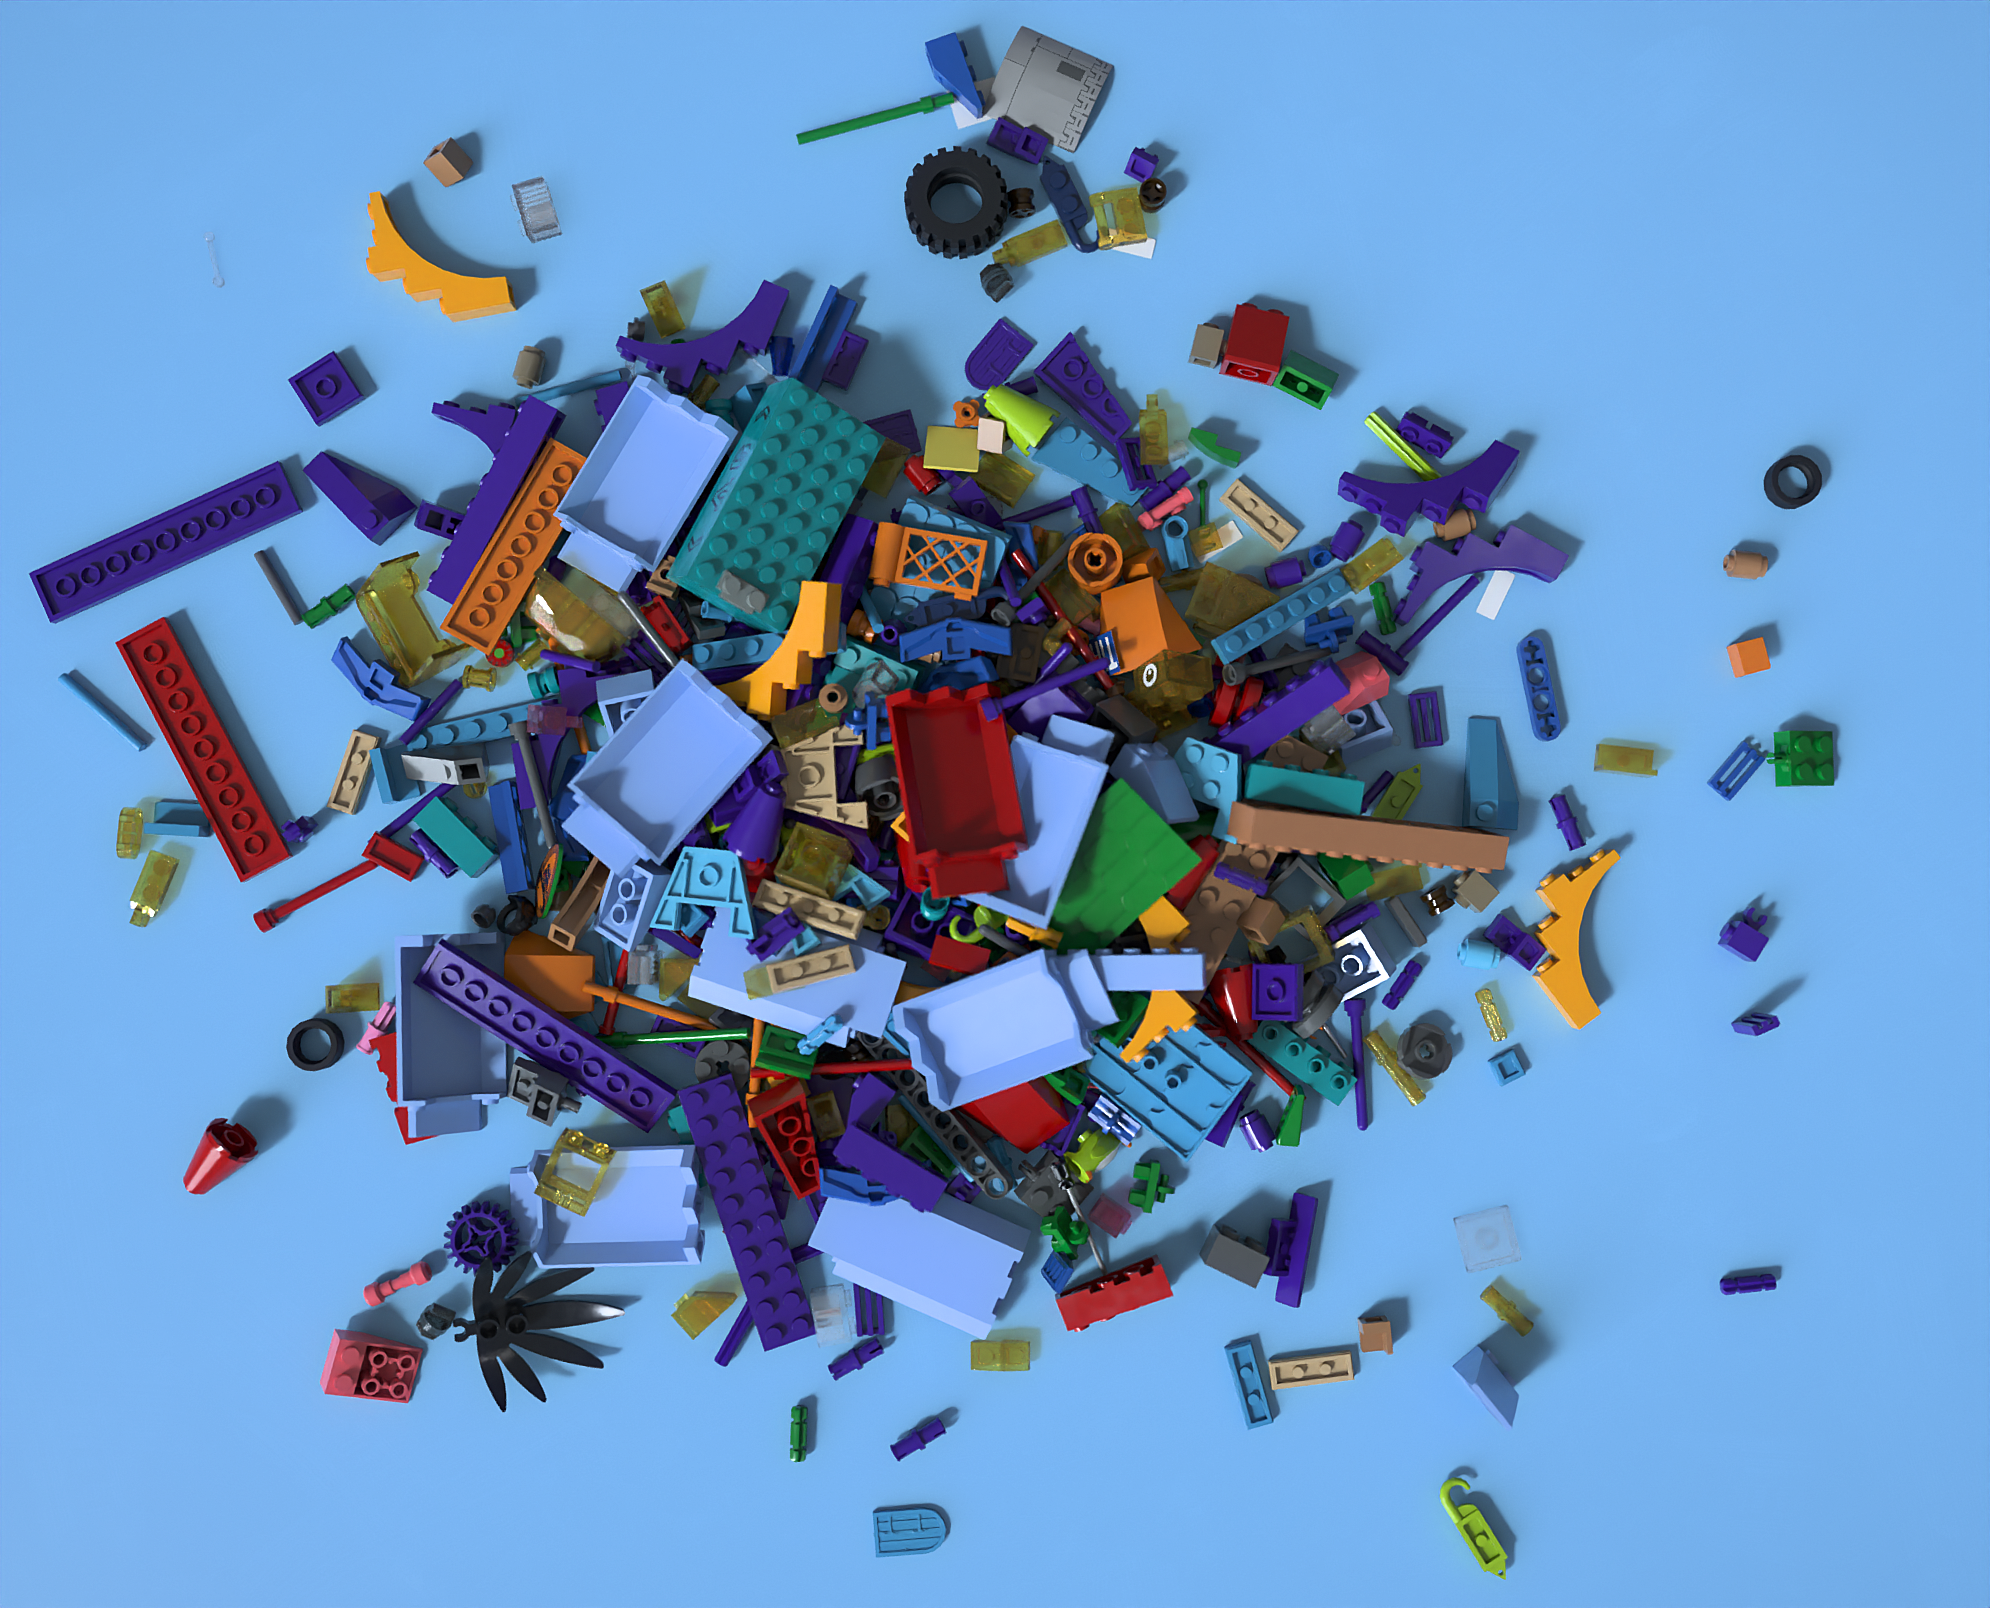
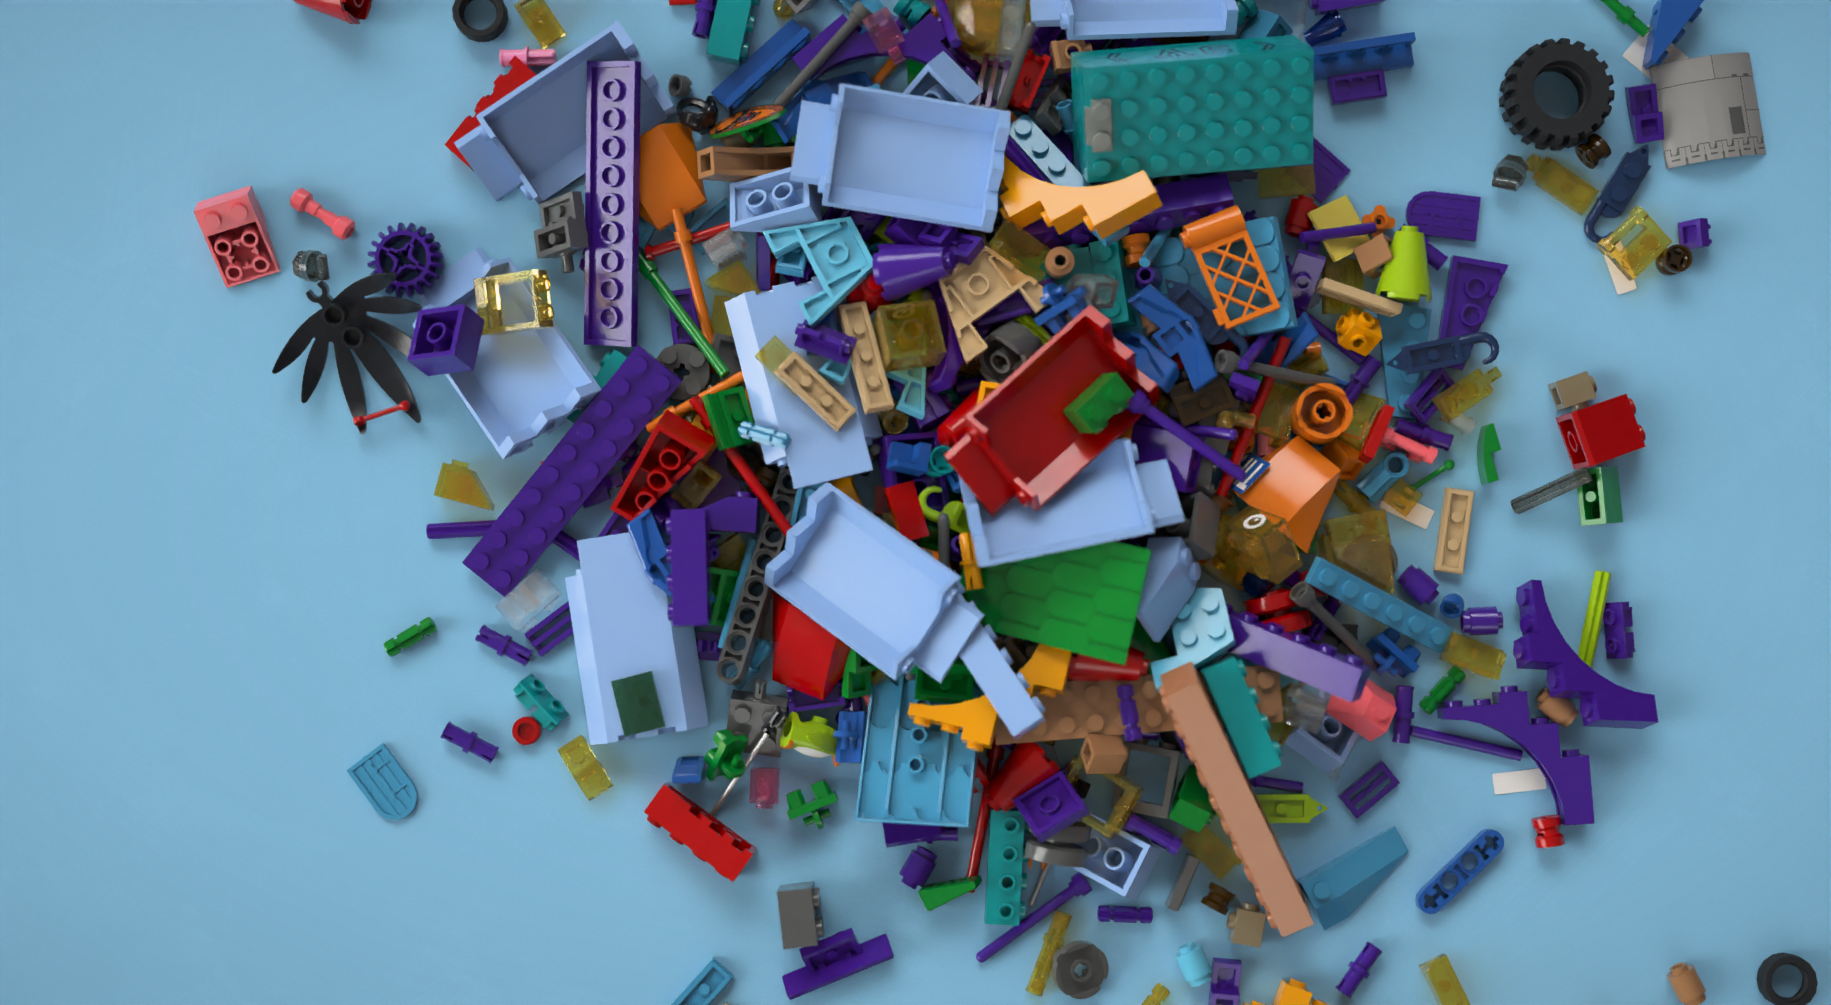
camera: 55 degrees right, 0 degrees up
(570, 1249) = (446, 340): none -> dark purple brick
(602, 1317) = (360, 420): none -> red hinge
(916, 926) = (909, 458): none -> blue panel
(934, 1354) = (533, 692): none -> teal hinge
(938, 1384) = (526, 730): none -> red tile
(955, 453) = (1337, 232): none -> dark purple bar
(971, 741) = (1098, 403): none -> green brick
(976, 1279) = (638, 703): none -> clear green plate
(1019, 470) = (1358, 297): none -> tan tile
(1047, 488) = (1358, 331): none -> light orange brick
(1108, 431) = (1442, 353): none -> dark blue plate
(1140, 528) = (1376, 433): none -> red tile
(1276, 415) = (1551, 490): none -> clear smoke axle
(1551, 597) = (1547, 831): none -> red wheel

